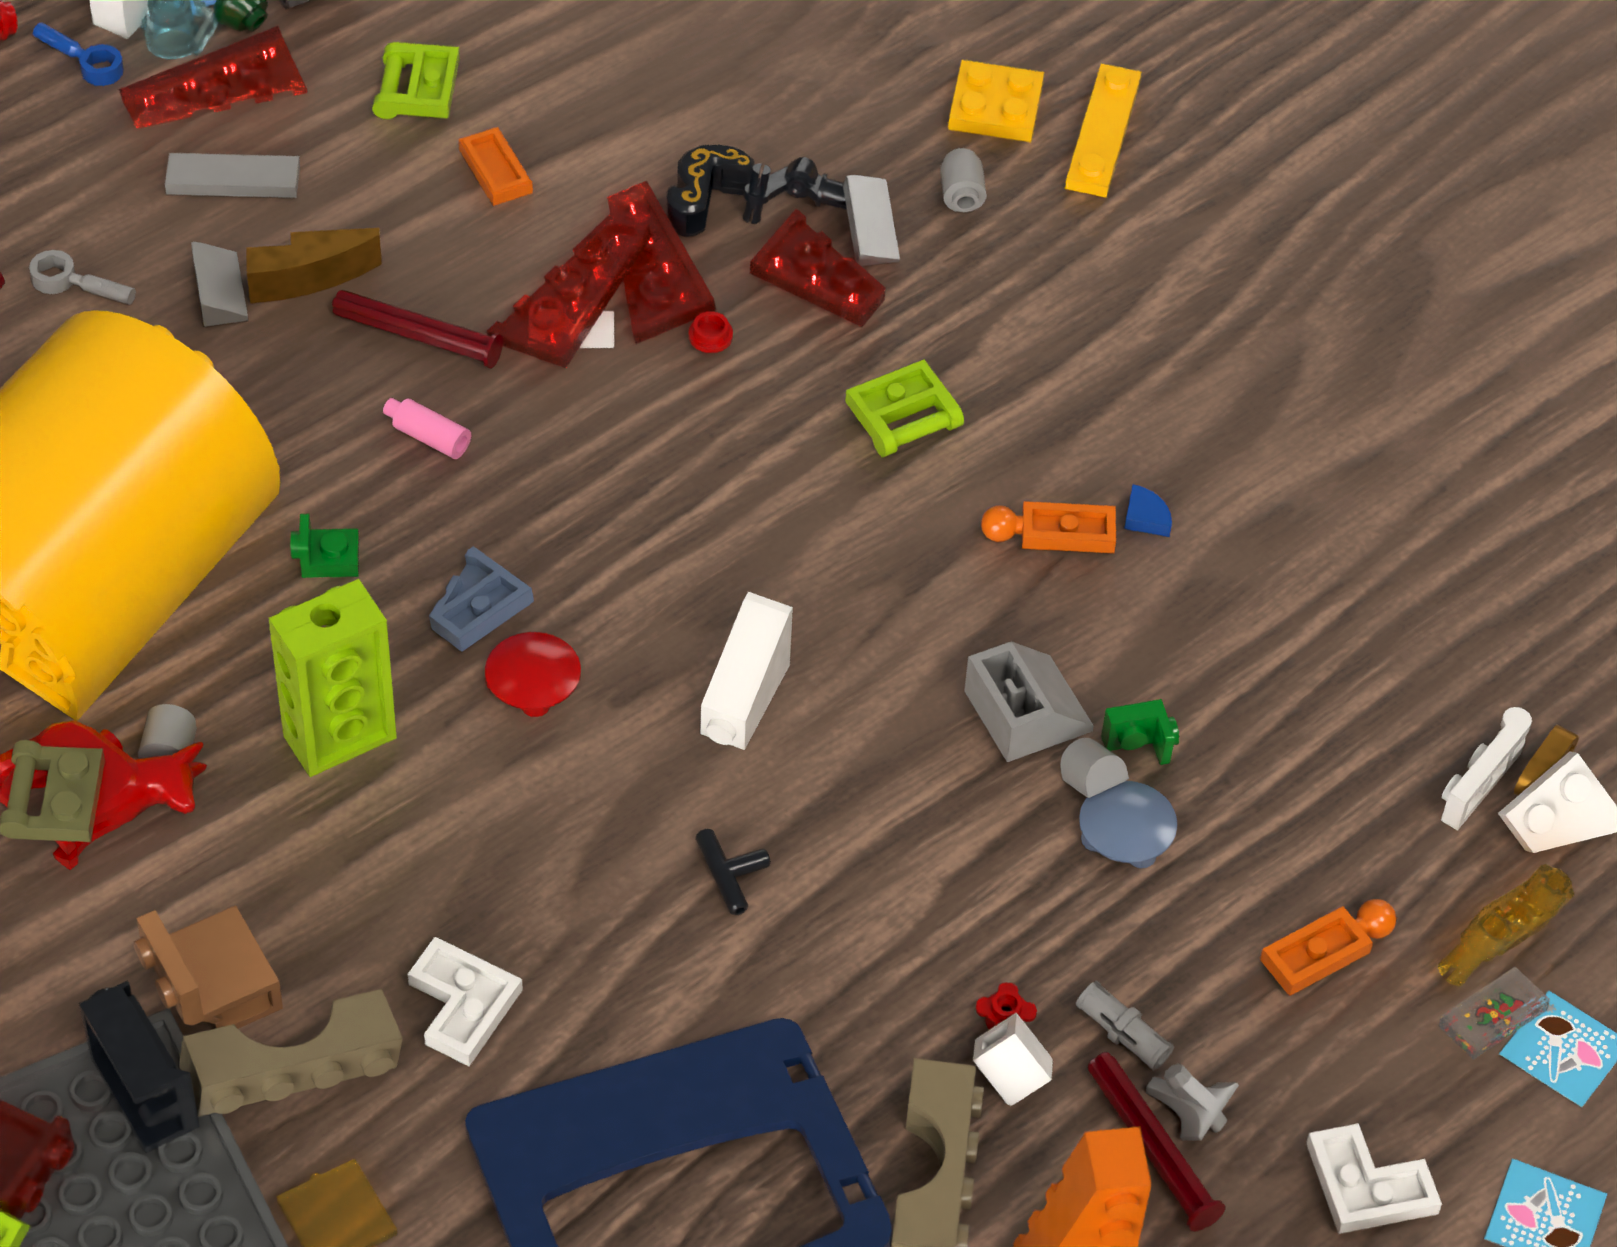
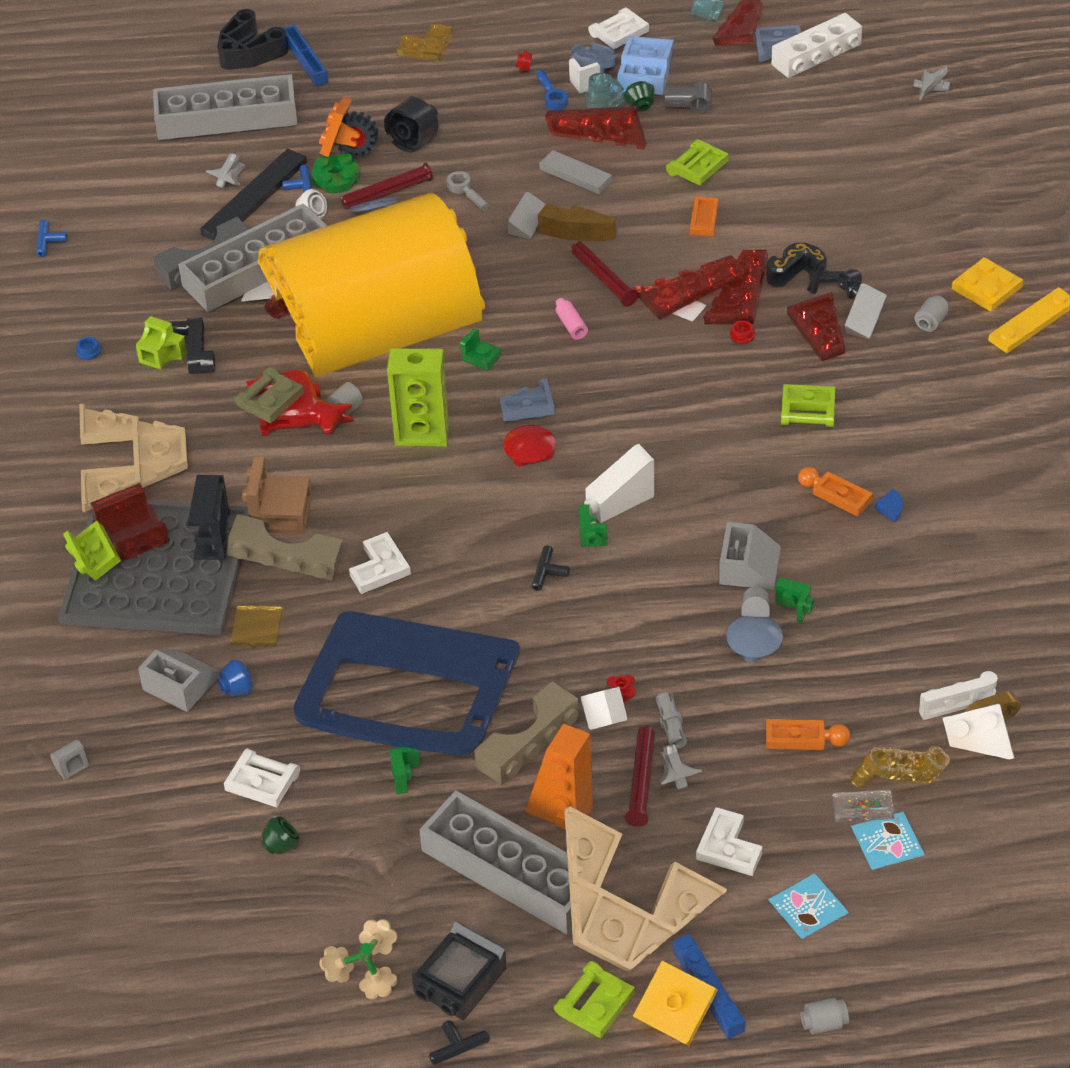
camera: 40 degrees right, 5 degrees down
(743, 772) = (590, 532): none -> green bracket

